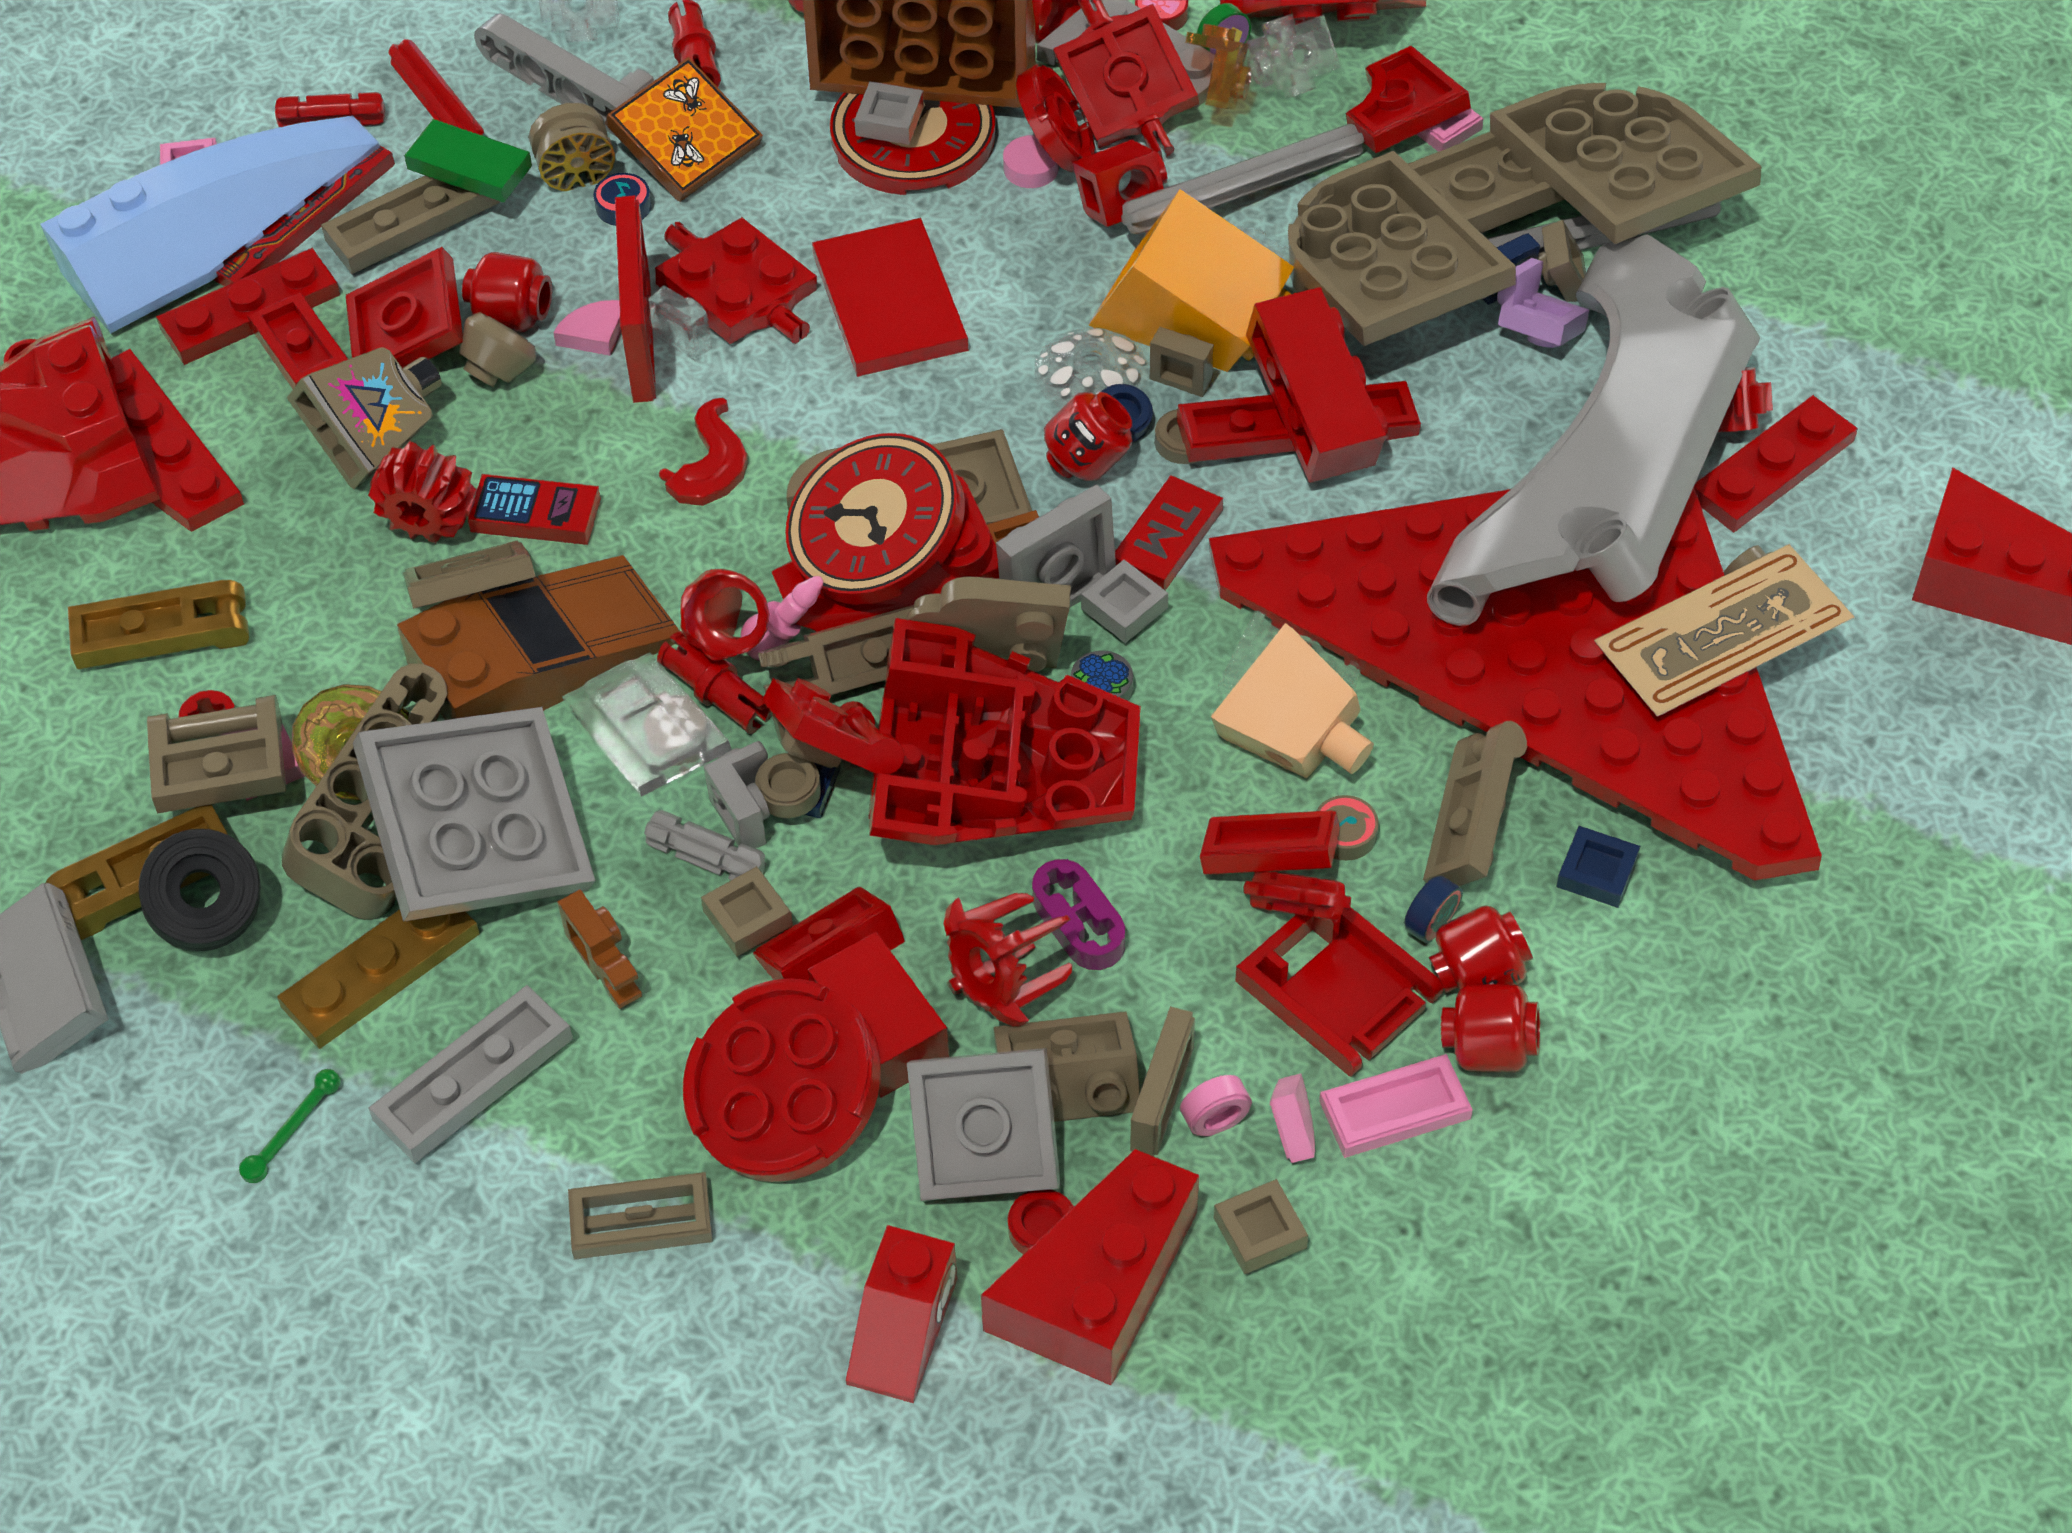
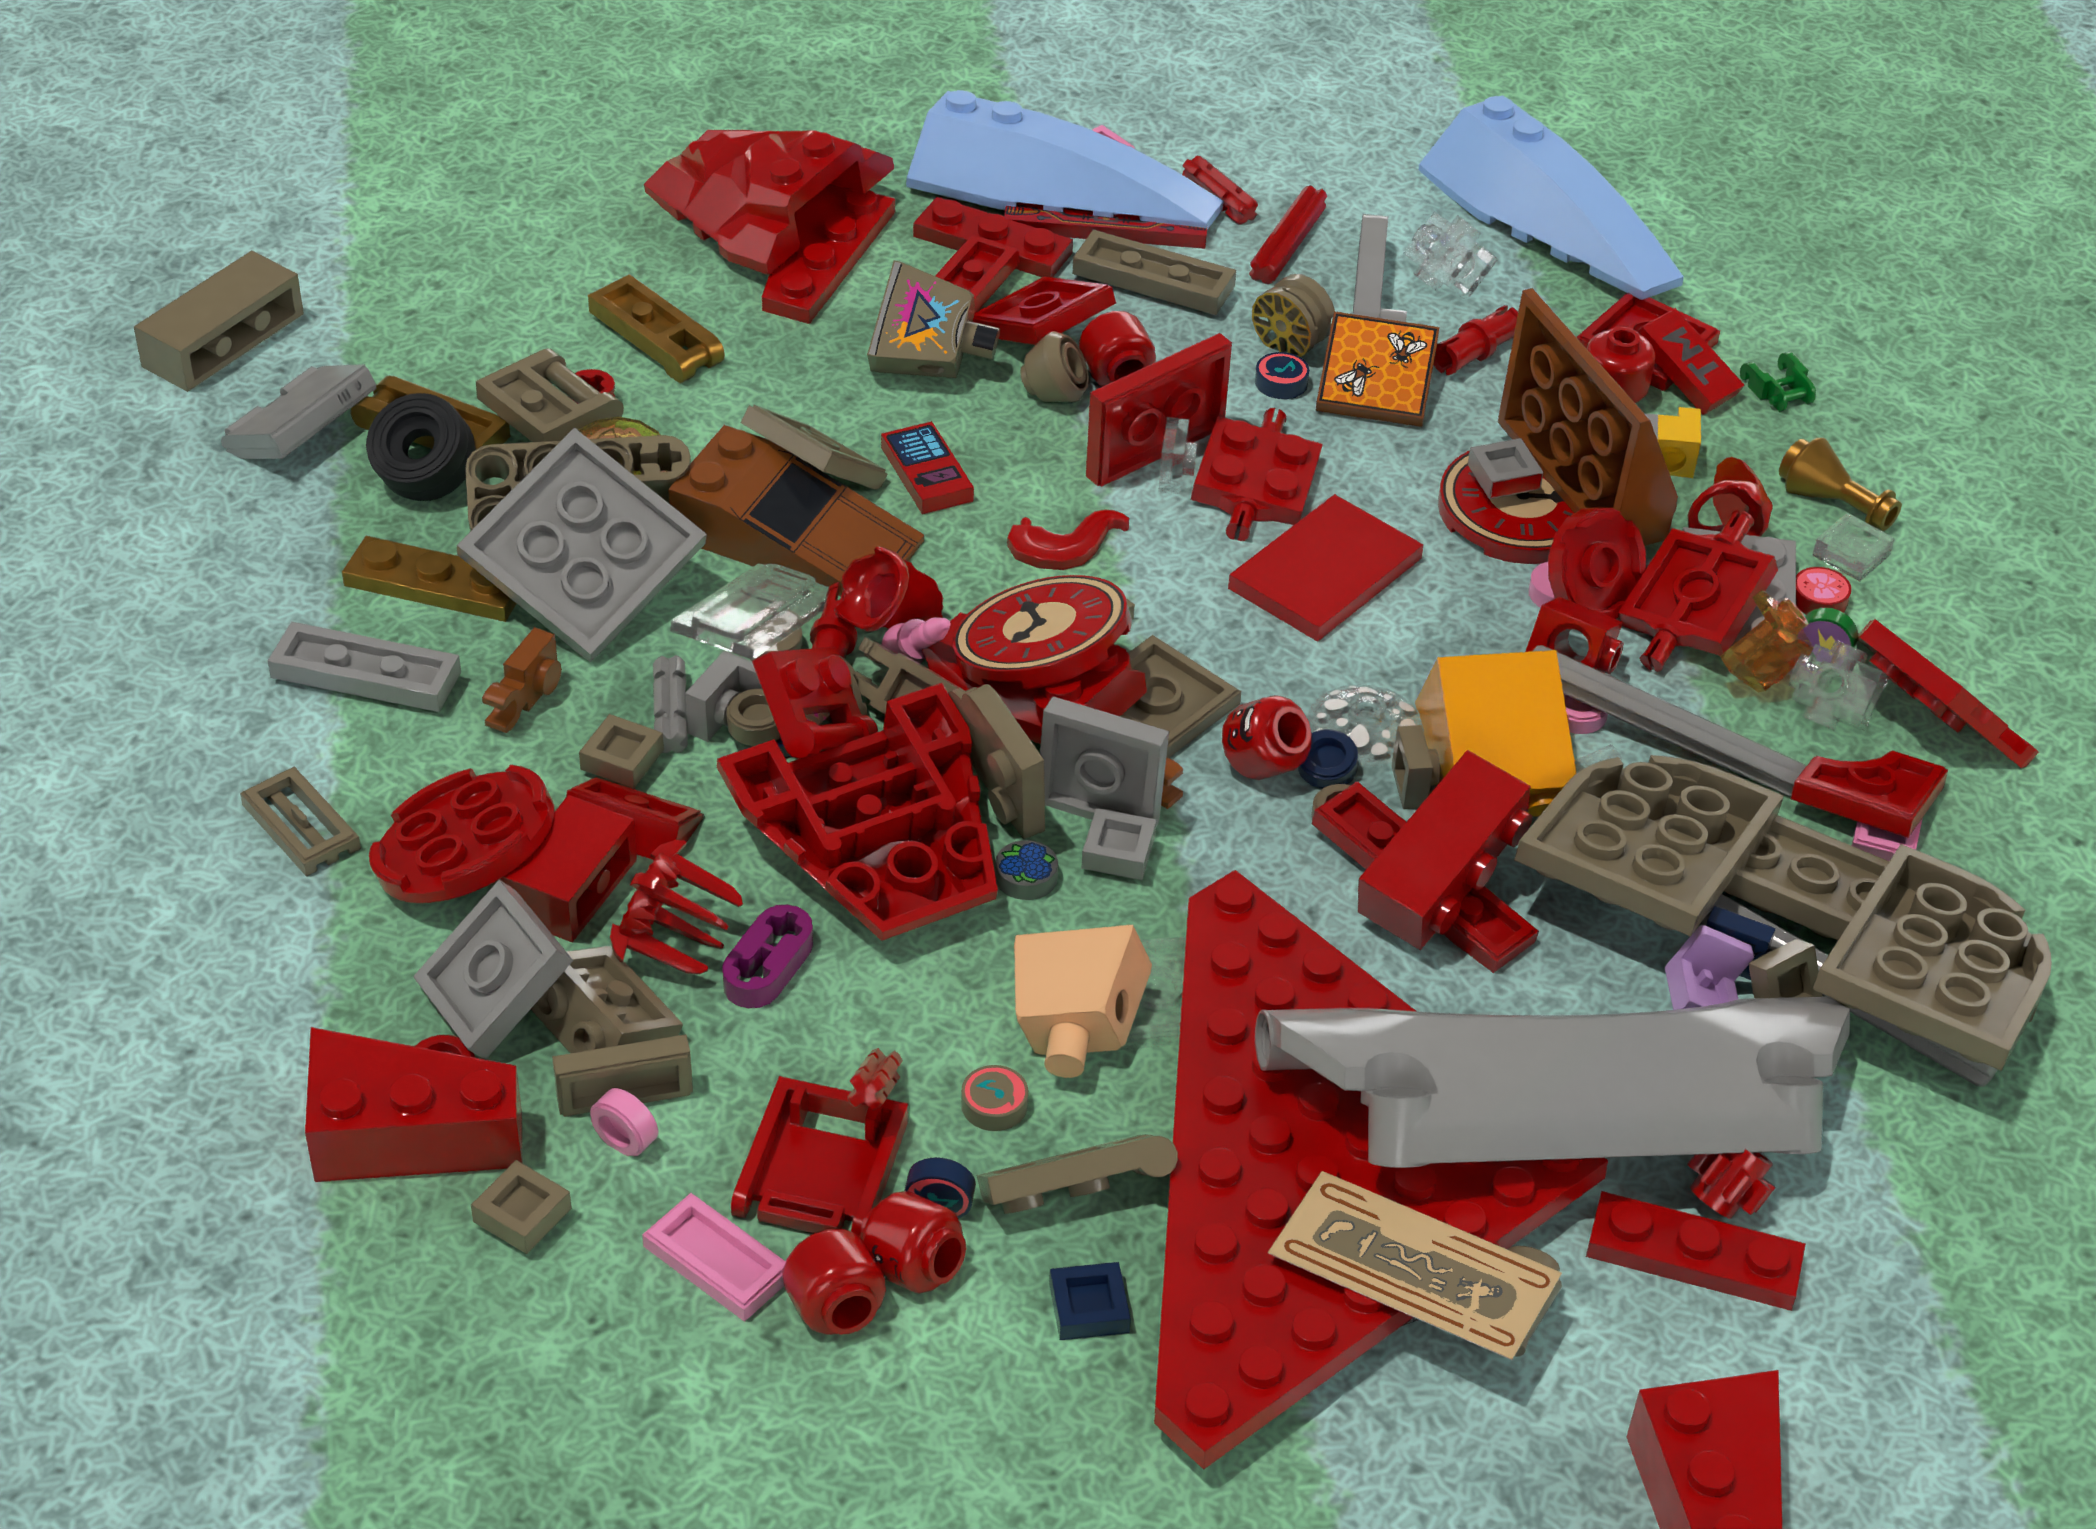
camera: 55 degrees right, 10 degrees down
(254, 1167) = (217, 598): green hinge -> none
(422, 492) = (873, 389): red gear -> none
(468, 160) = (1222, 268): green tile -> none
(901, 1313) = (288, 998): red slope -> none
(1169, 530) = (1223, 844): red tile -> none
(1270, 842) = (926, 1043): red tile -> none
(1293, 1118) = (652, 1183): bright pink tile -> none

